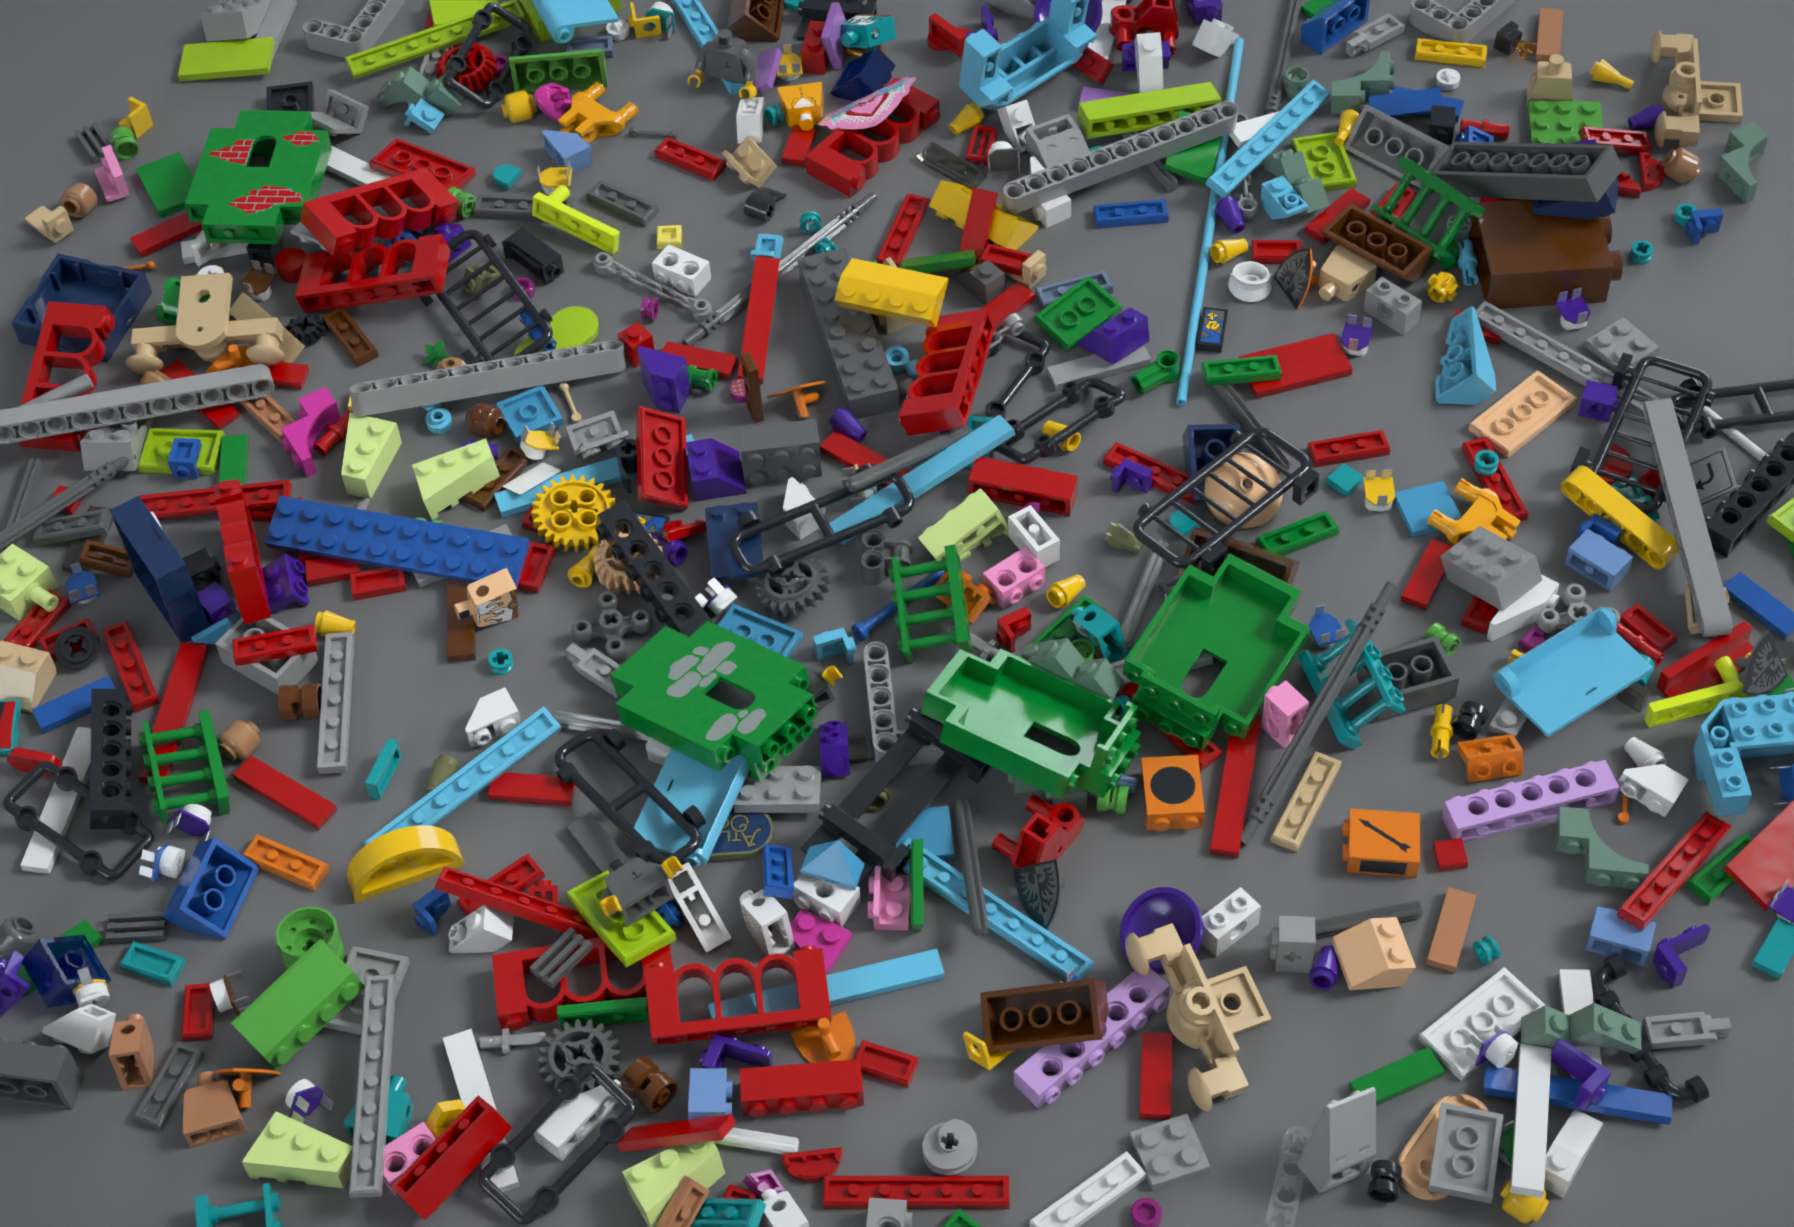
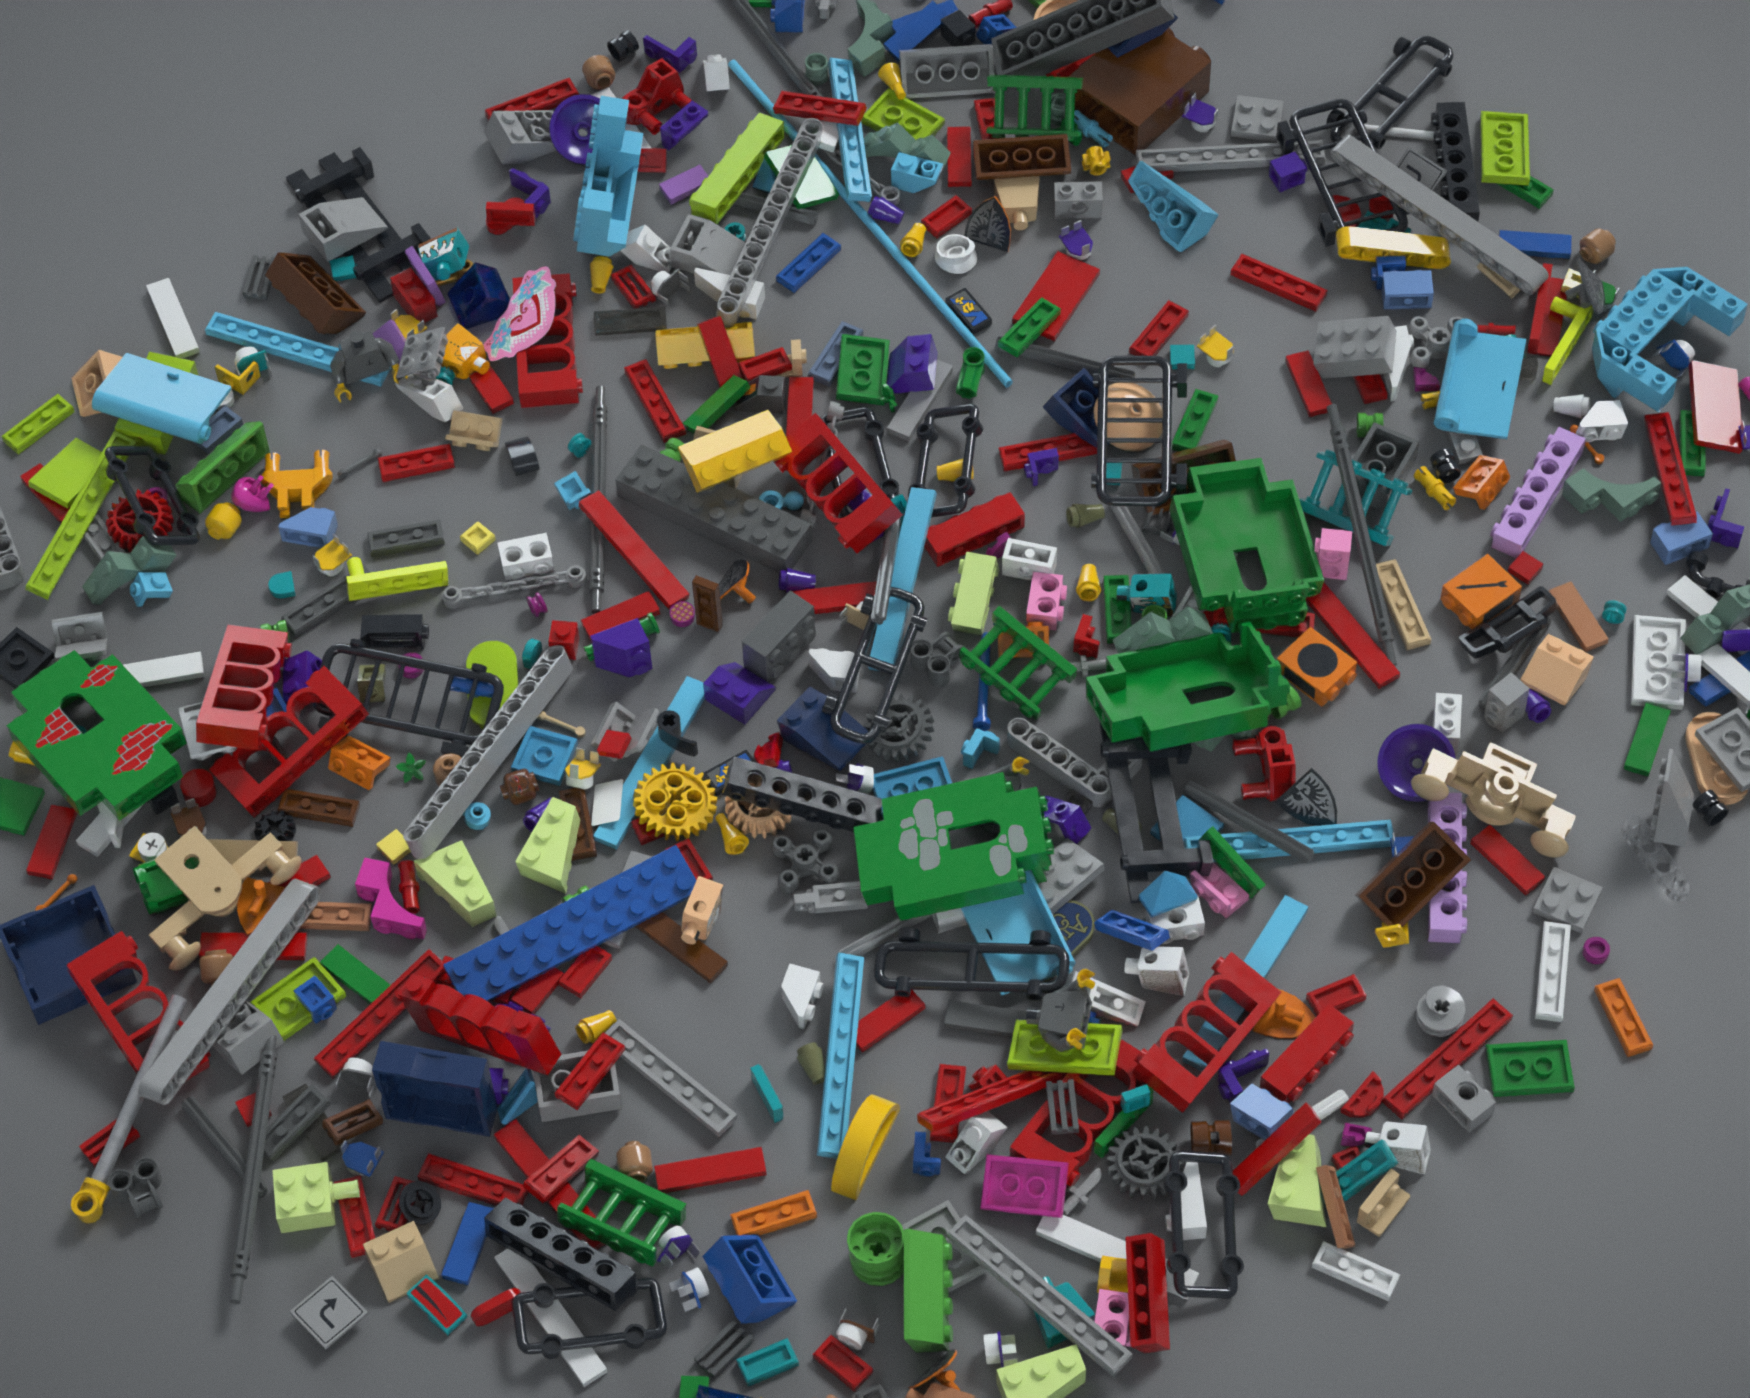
camera: 45 degrees left, 5 degrees up
(188, 702) = (560, 1169): none -> red tile
(308, 705) = (642, 1101): reddish brown wheel -> none
(405, 157) = (200, 629): red tile -> none
(408, 323) = (357, 762): none -> orange bracket
(469, 995) = (1024, 1186): none -> dark pink tile
(493, 661) = (751, 959): teal bush -> none
(575, 437) = (614, 744): none -> red tile
(606, 333) = (531, 653): none -> teal tile
(617, 998) = (1135, 1099): none -> teal tile
(661, 458) = (697, 709): red tile -> none
(771, 84) = (423, 353): none -> light grey hinge
(821, 933) = (1202, 951): dark pink wing -> none
(825, 246) = (613, 455): teal bush -> none
(1072, 348) = (889, 397): none -> green plant
(1149, 62) = (704, 131): white slope -> none
(1260, 107) = (820, 108): none -> red tile
(1325, 628) = (1289, 470): blue piece -> none
(1400, 899) = (1502, 643): none -> black bar
(1419, 503) = (1259, 336): dark azure tile -> none
(1484, 512) = (1304, 316): light orange connector -> none
(1490, 457) = (1265, 278): teal bush -> none
(1522, 413) = (1245, 218): light nougat tile -> none
(1638, 257) = (1196, 29): teal bush -> none
(1645, 624) = (1483, 313): red tile -> none

